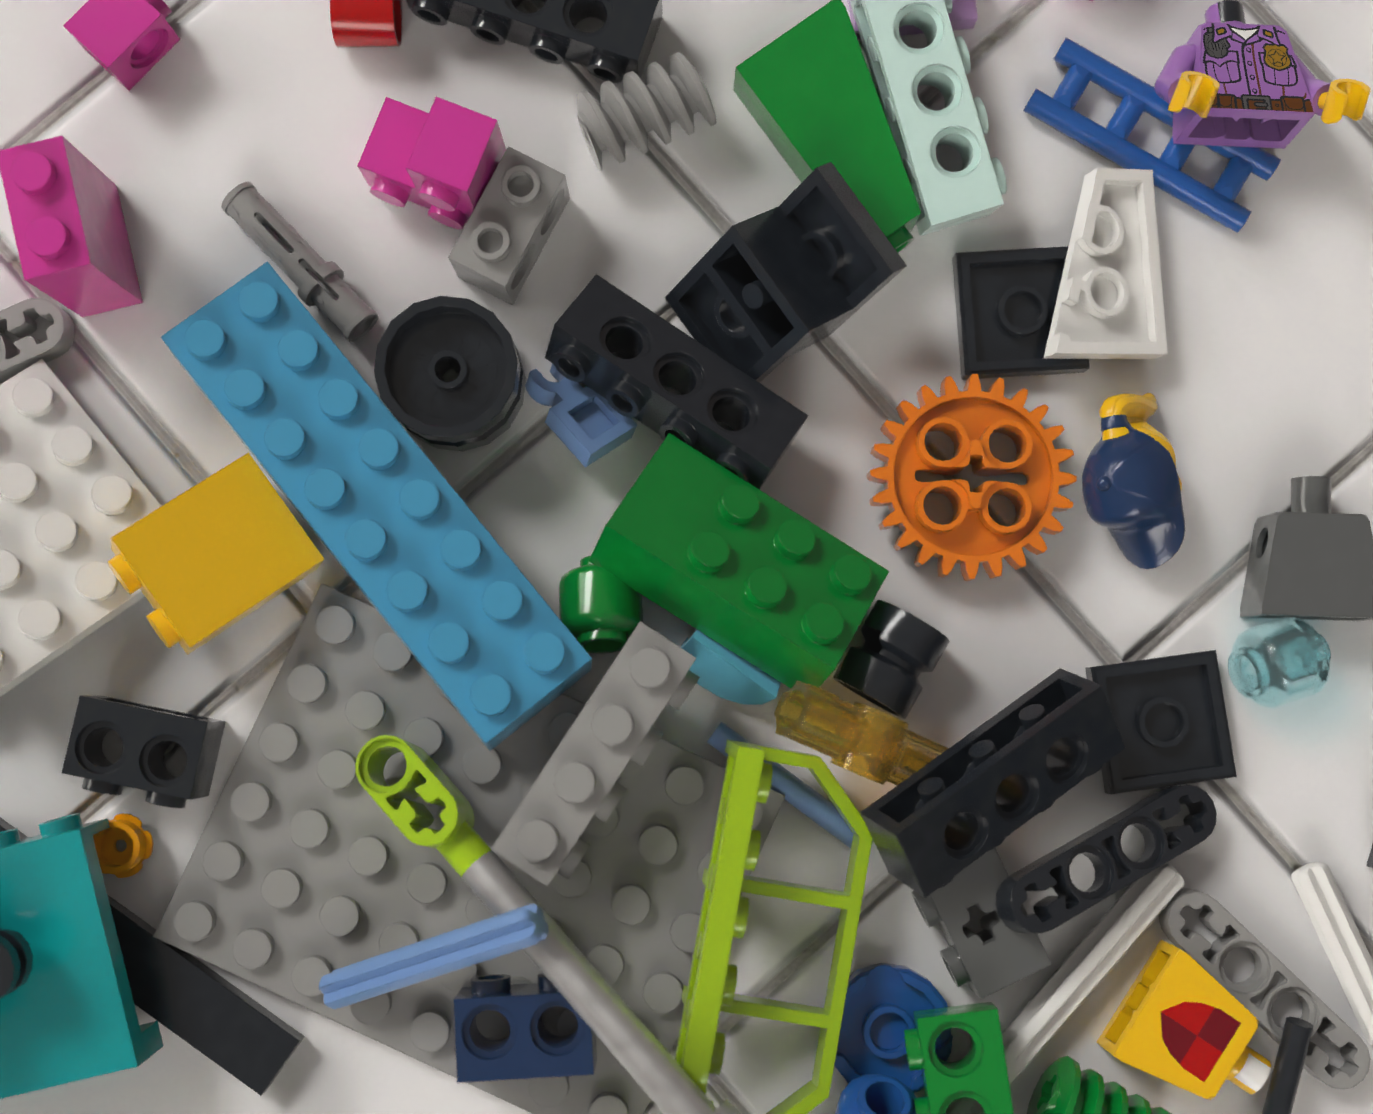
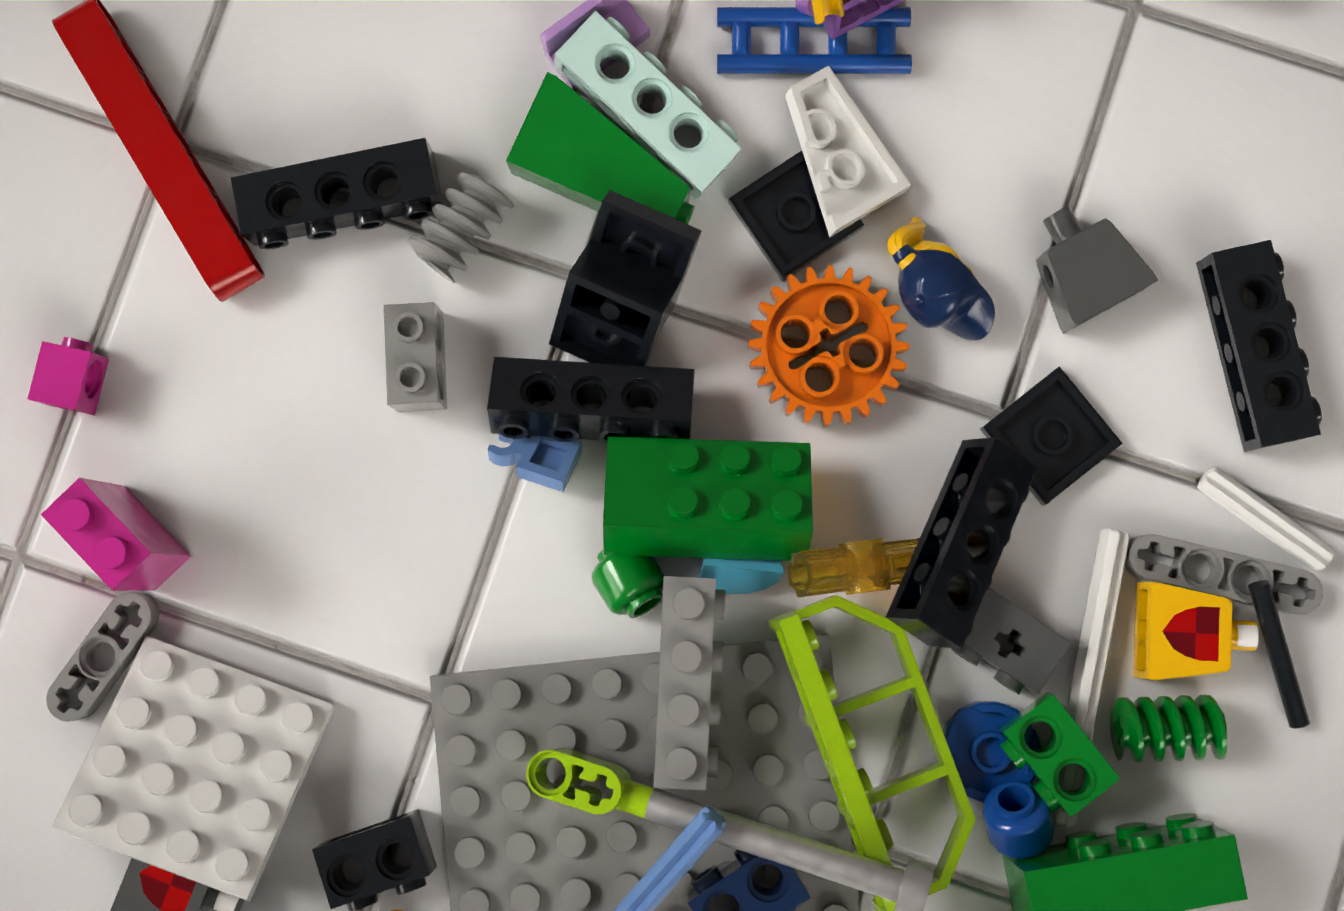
camera: 20 degrees left, 0 degrees up
(213, 555) = (346, 700): yellow brick -> none
(254, 212) = (231, 451): light grey pin -> none
(379, 505) = (438, 600): dark azure brick -> none
(429, 342) = (404, 478): black wheel -> none
(432, 158) = (335, 343): dark pink brick -> none
(794, 789) = (833, 627): medium blue bar -> none
(891, 658) = (846, 500): black wheel -> none
(1110, 863) = (1073, 553): black beam -> none
(1279, 662) = (1106, 350): clear light blue head -> none

